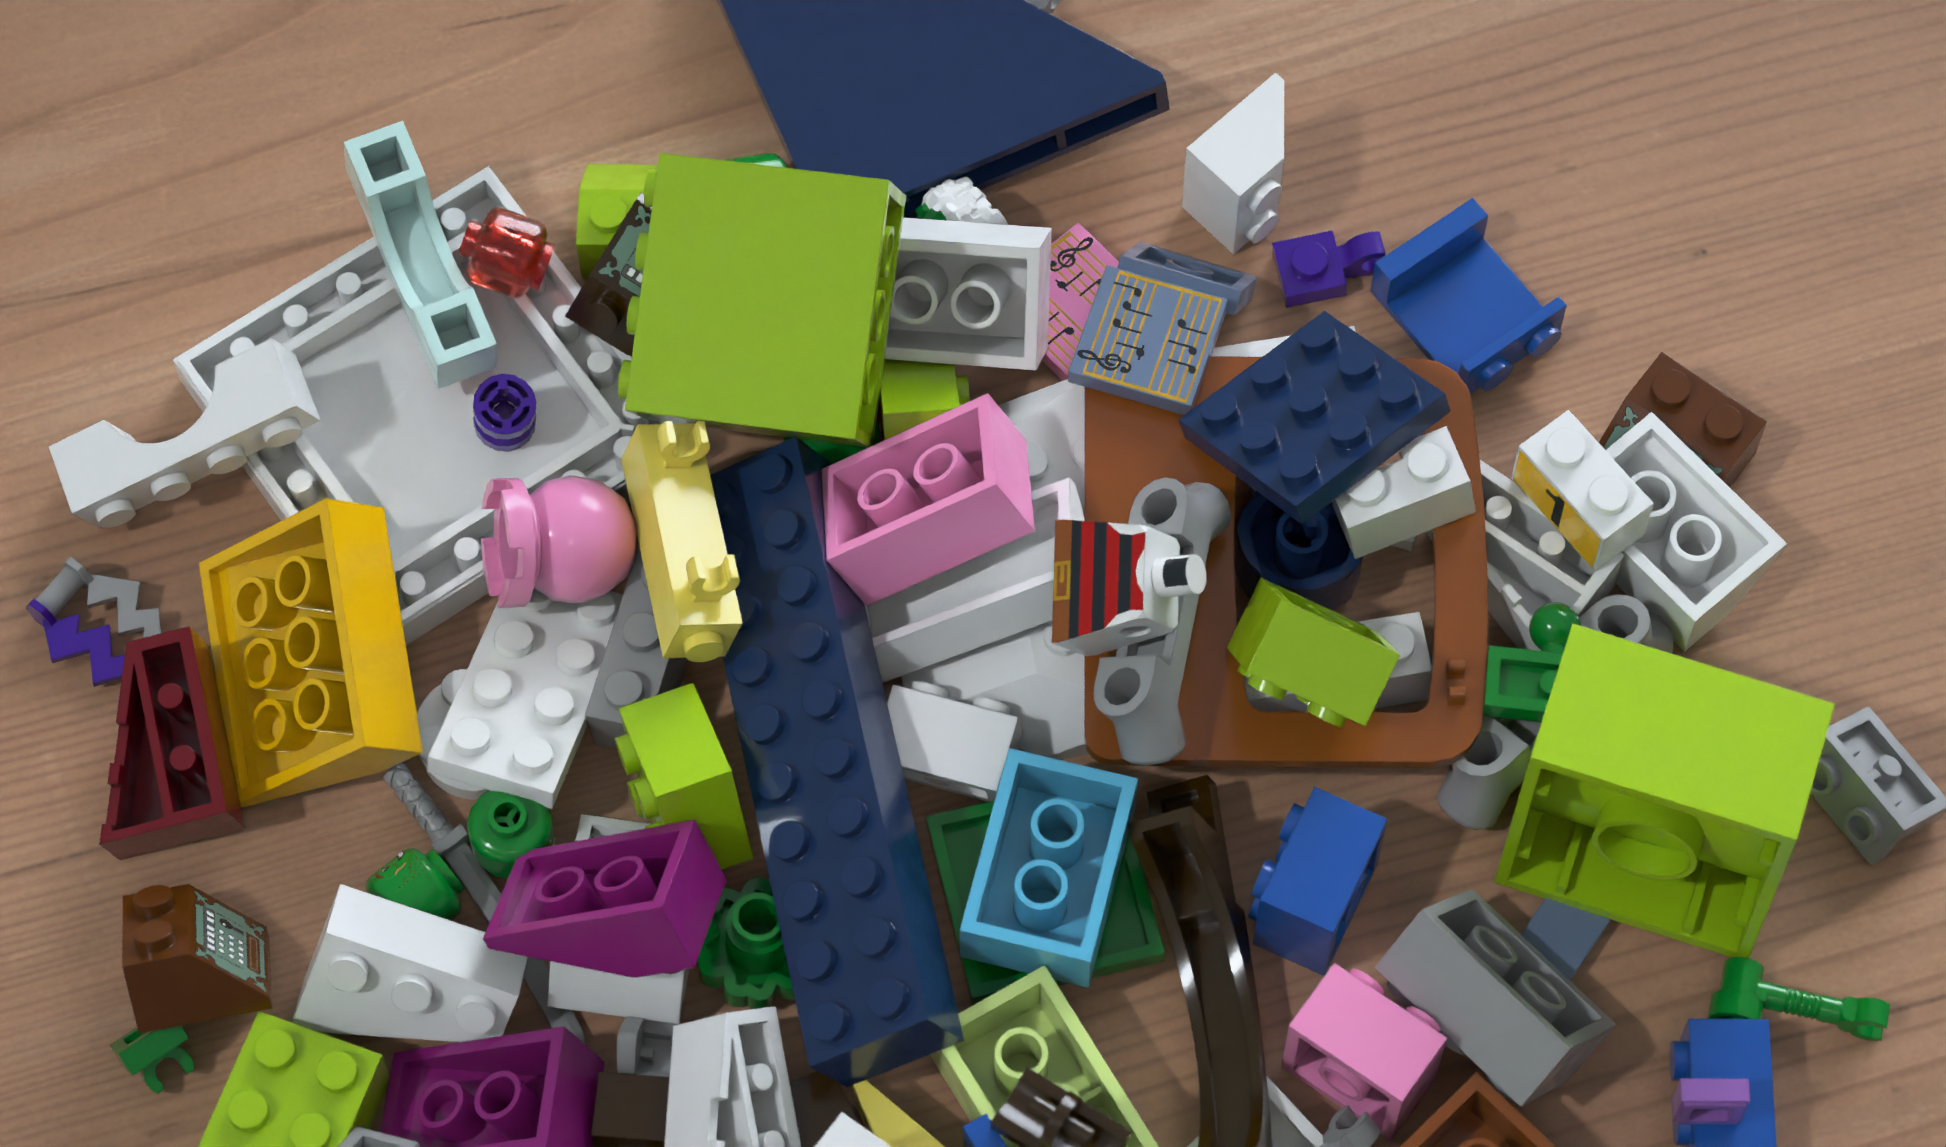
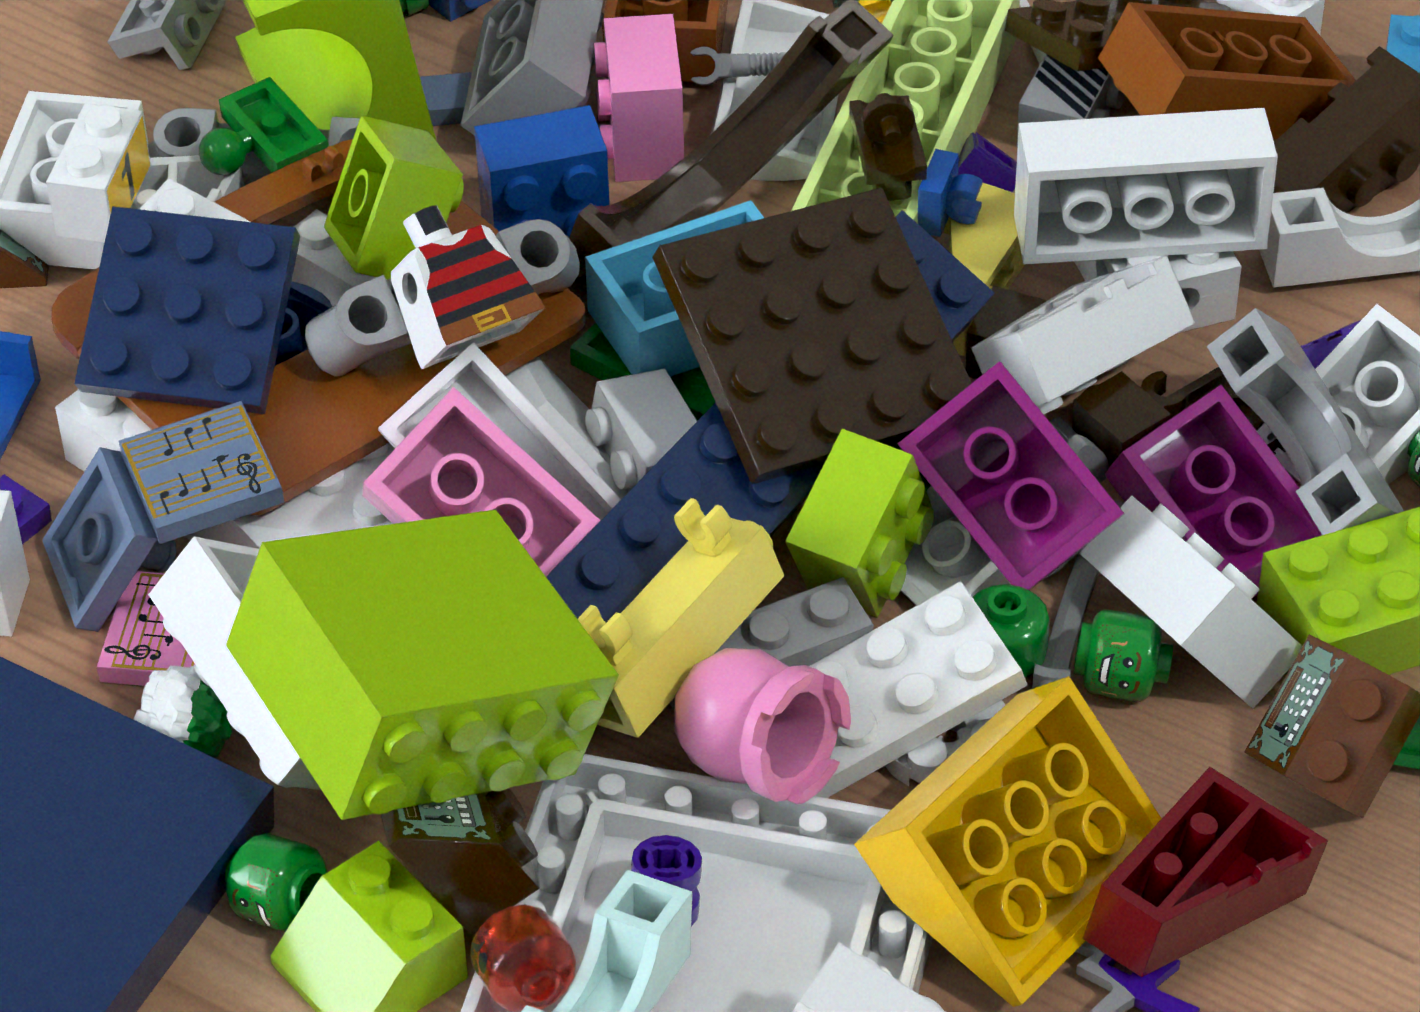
camera: 130 degrees left, 20 degrees down
(850, 837) = (812, 330): none -> dark brown plate

